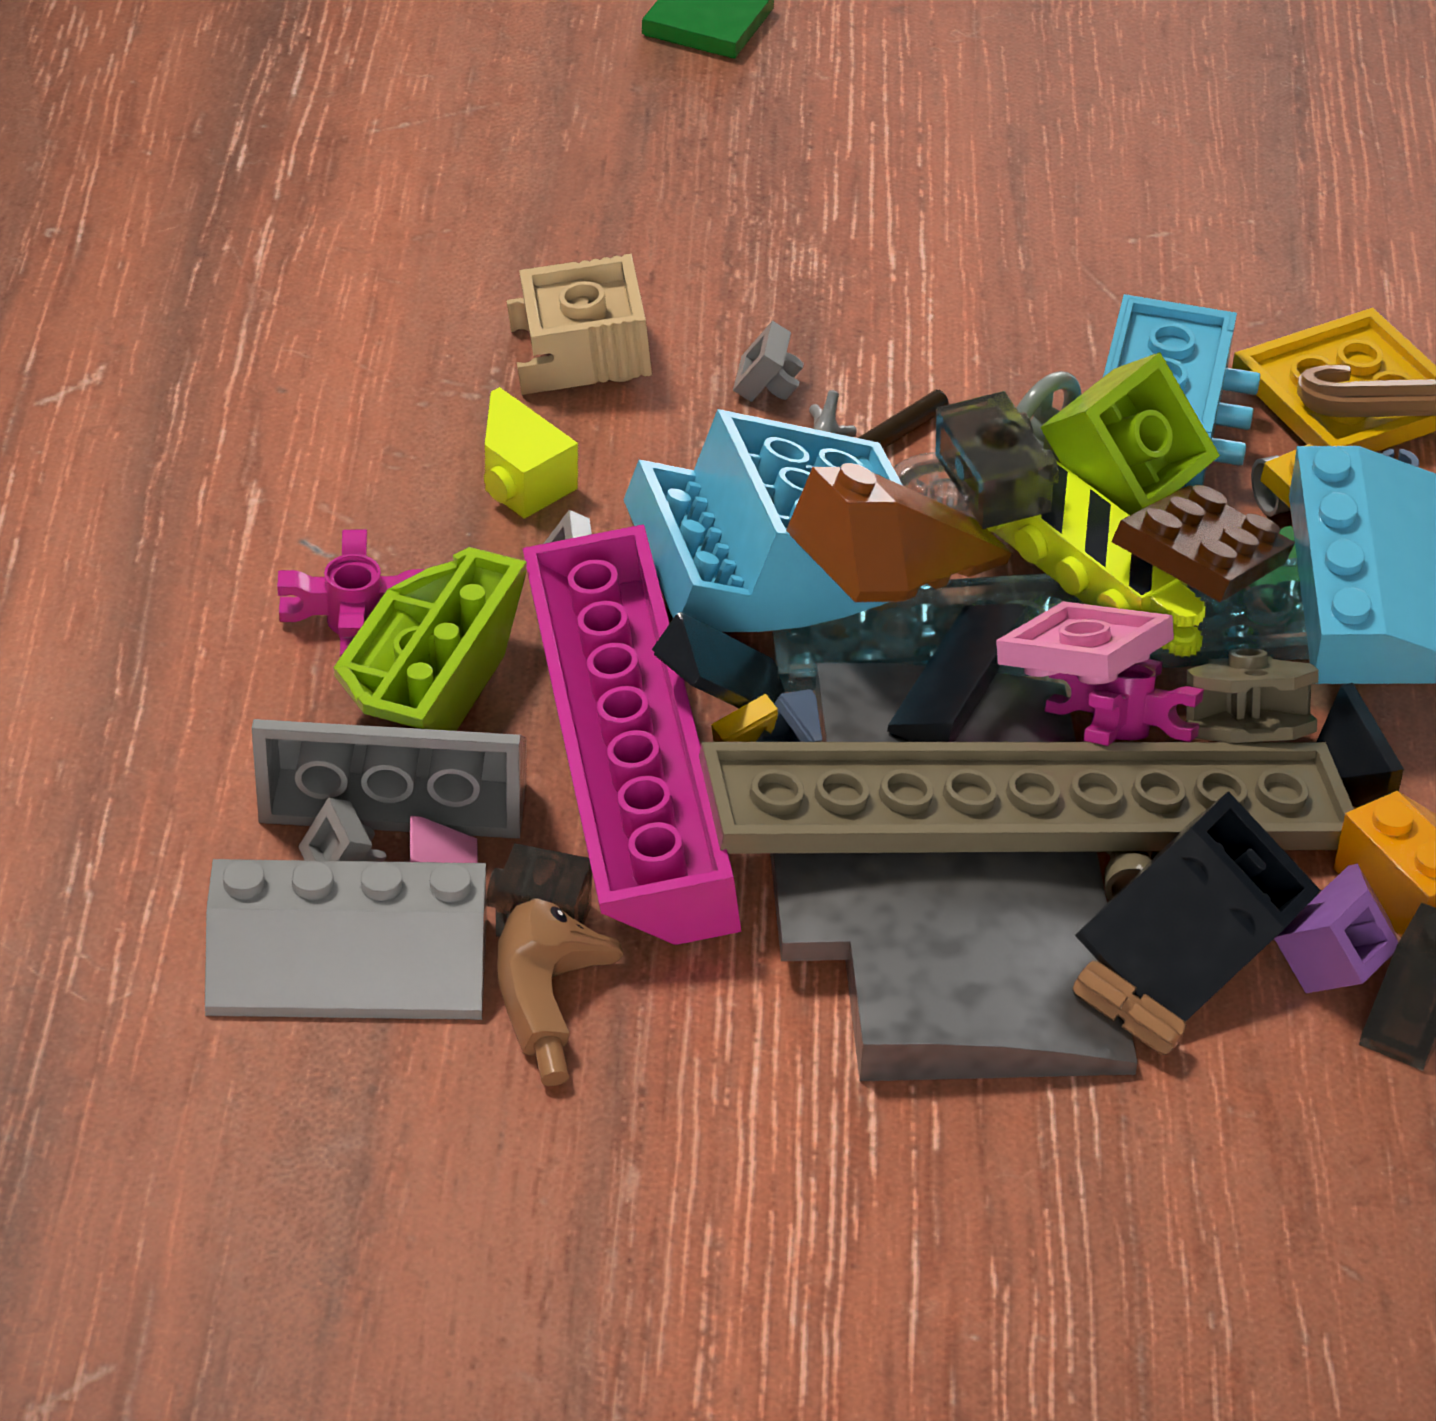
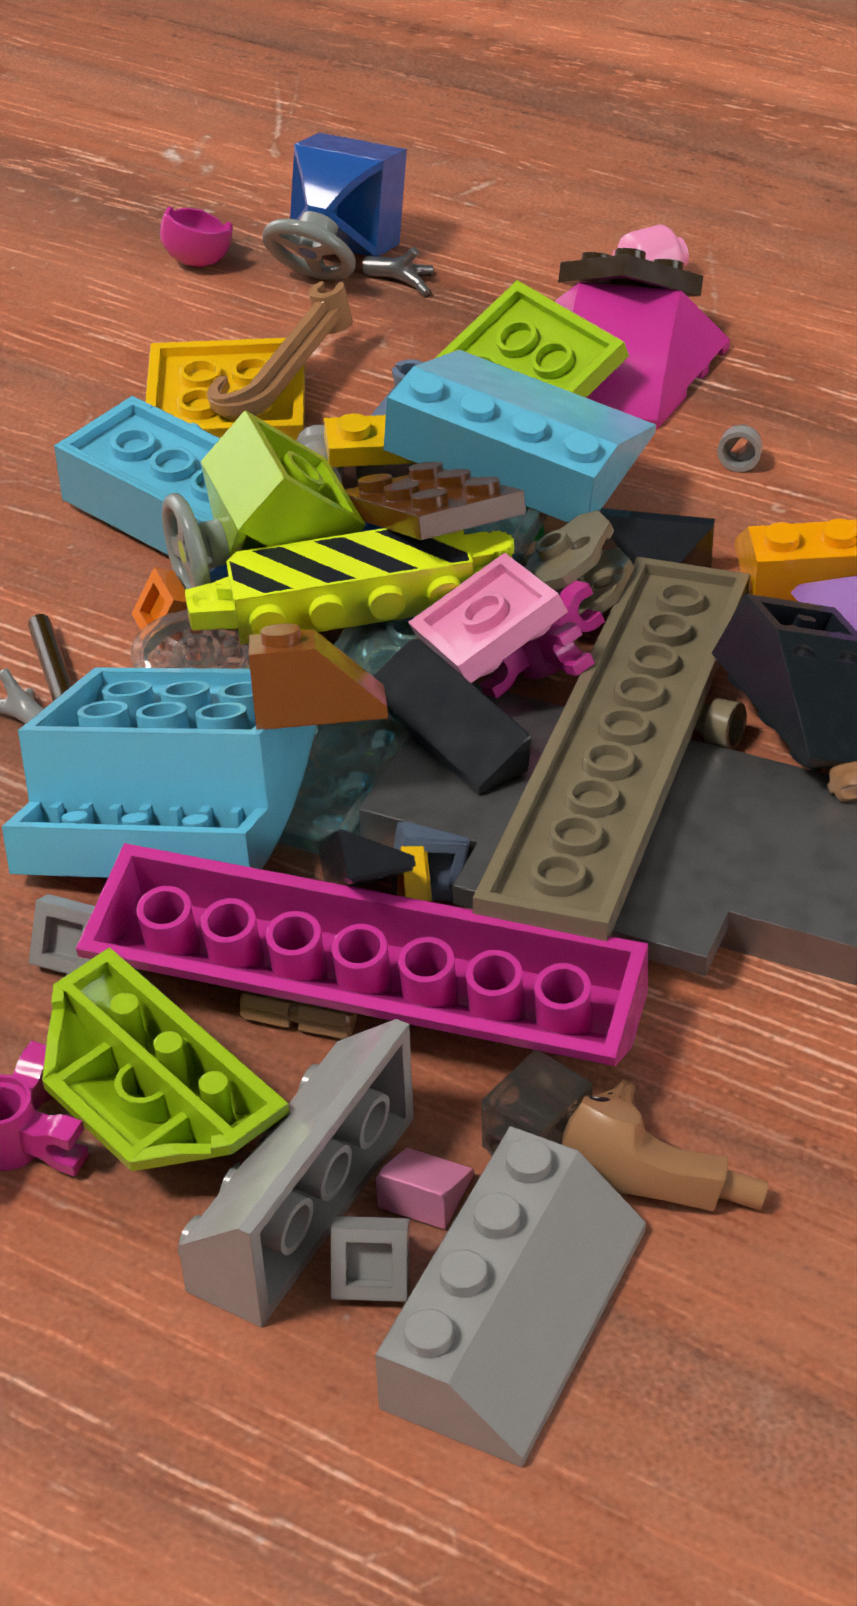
camera: 60 degrees left, 0 degrees up
(995, 459) = (255, 572): clear smoke brick -> none

